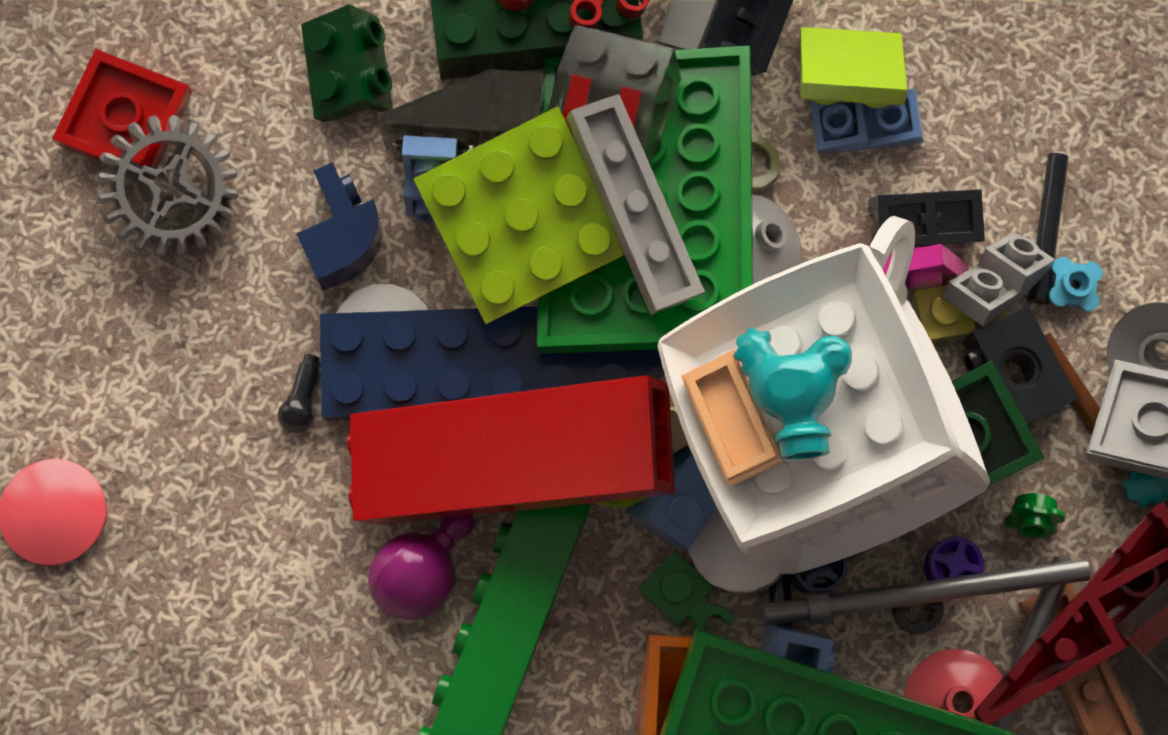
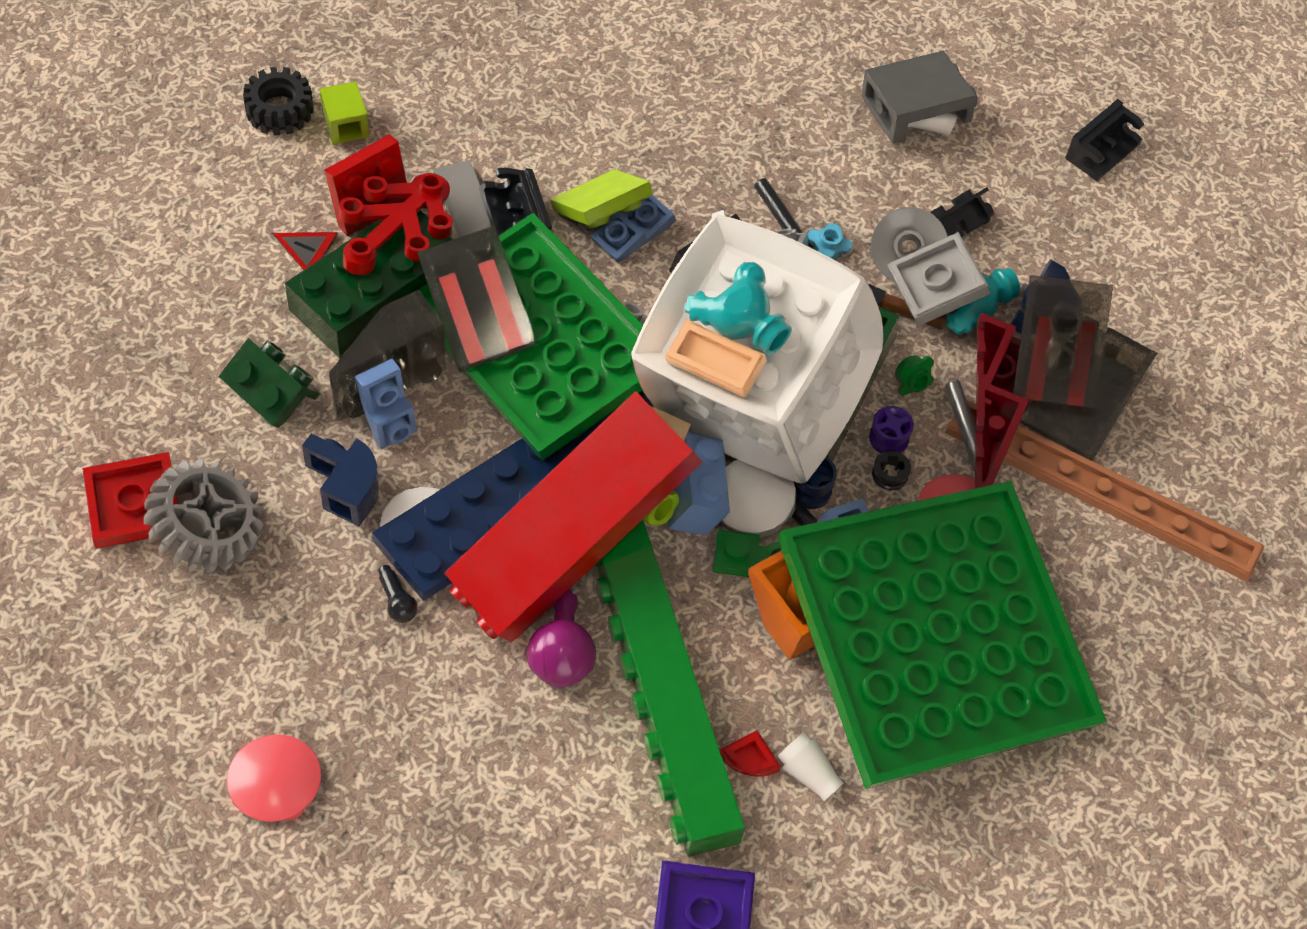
camera: 40 degrees left, 20 degrees down
(520, 215) = (469, 378): lime plate -> none
(634, 204) = (540, 322): light grey plate -> none
(819, 606) = (838, 492): flat silver bar -> none

